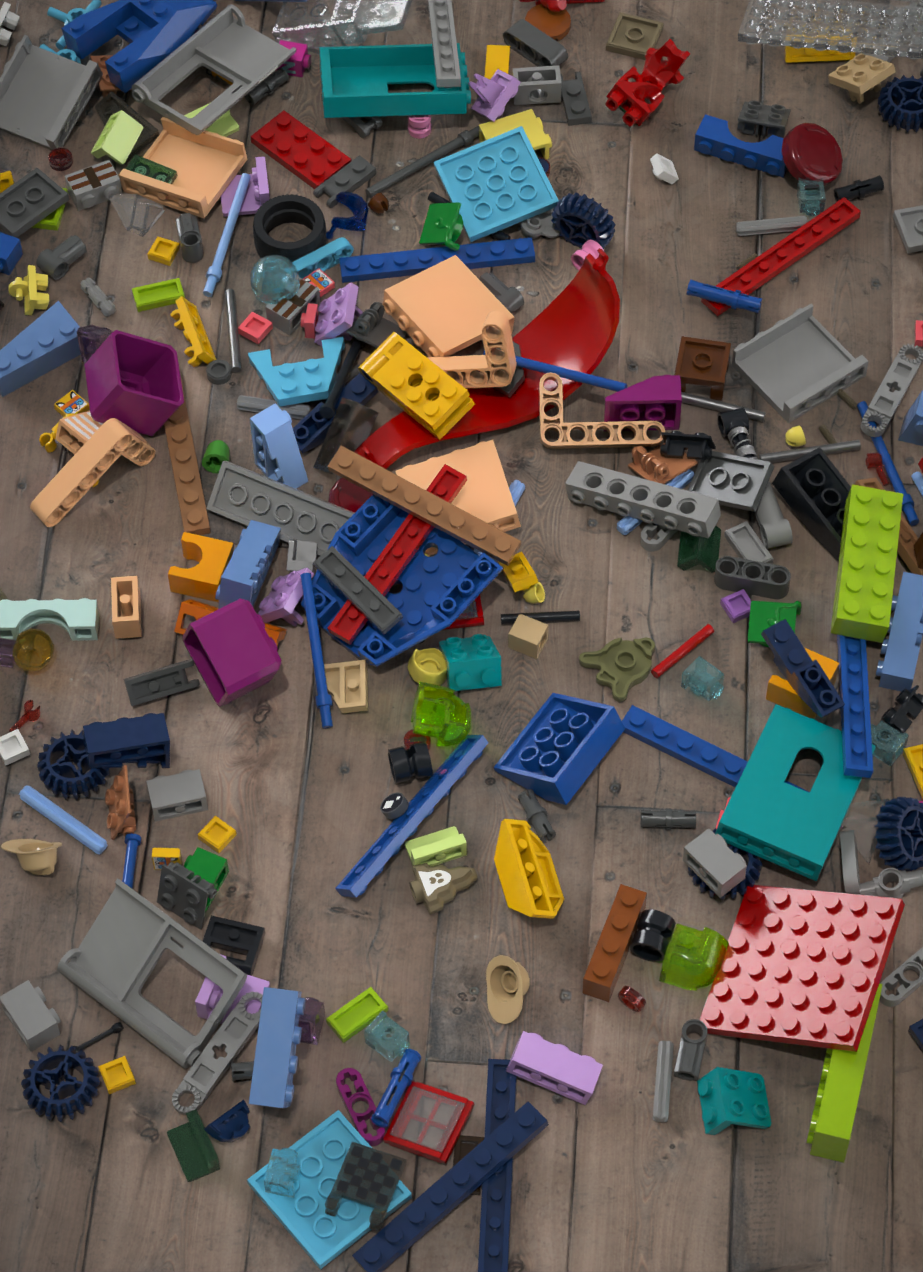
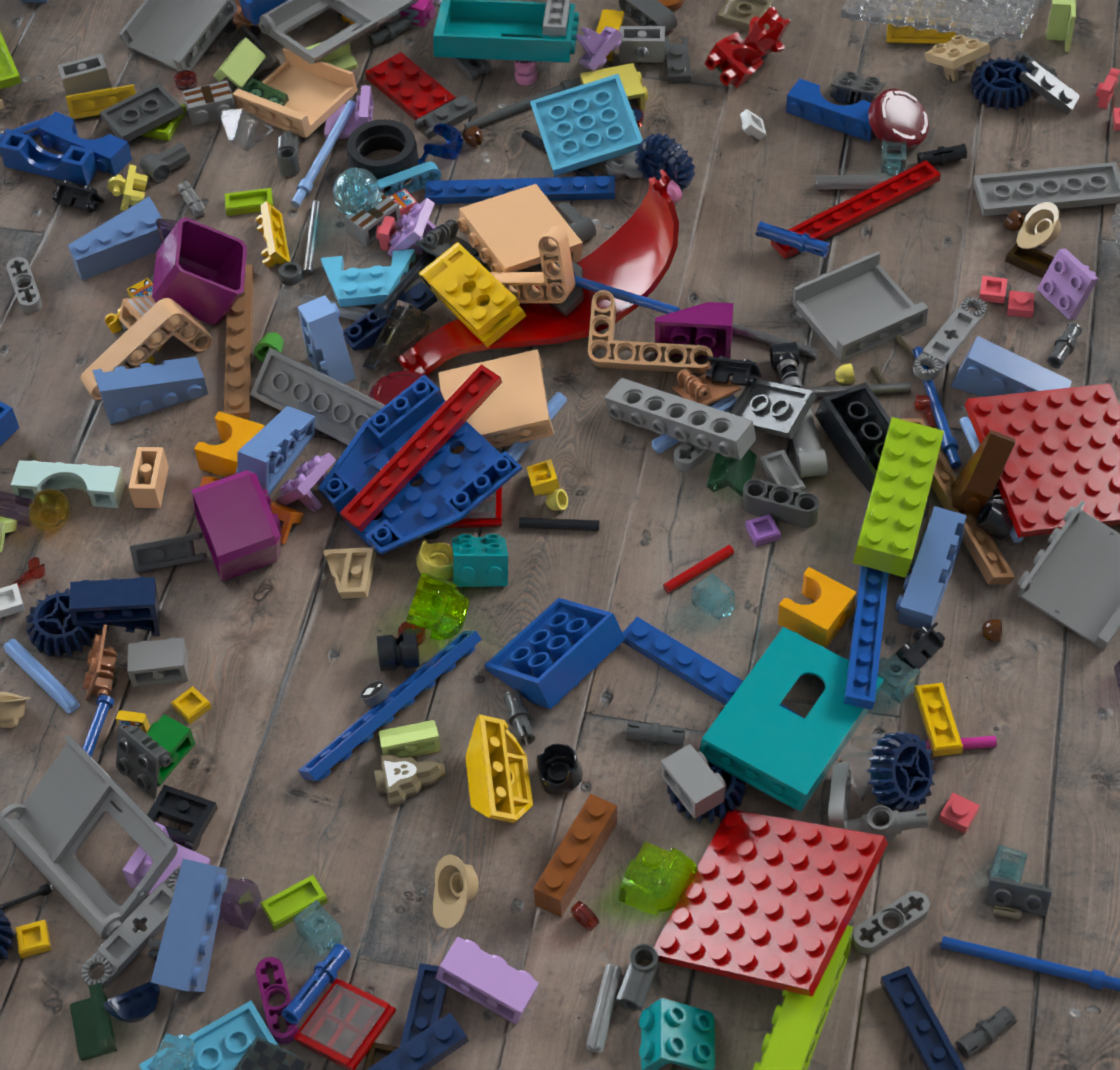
camera: 10 degrees right, 5 degrees down
(104, 511) = (149, 388): none -> medium blue wedge
(163, 251) = (262, 164): yellow tile -> none
(255, 328) = (333, 236): coral plate -> none
(301, 555) = (330, 441): flat silver panel -> none
(323, 700) = (324, 582): blue bar -> none
(358, 590) = (375, 478): dark grey tile -> none
(424, 505) = (454, 402): medium nougat plate -> none
(442, 225) = (529, 158): green hat -> none
(528, 636) = (542, 540): tan panel -> none
(584, 862) = (559, 769): none -> black hair
(621, 664) = (633, 576): olive tile -> none
(652, 935) = (618, 849): black wheel -> none
(703, 364) = (762, 299): reddish brown panel -> none
(767, 614) = (795, 548): green hat -> none
(800, 671) = (813, 595): dark blue slope -> none

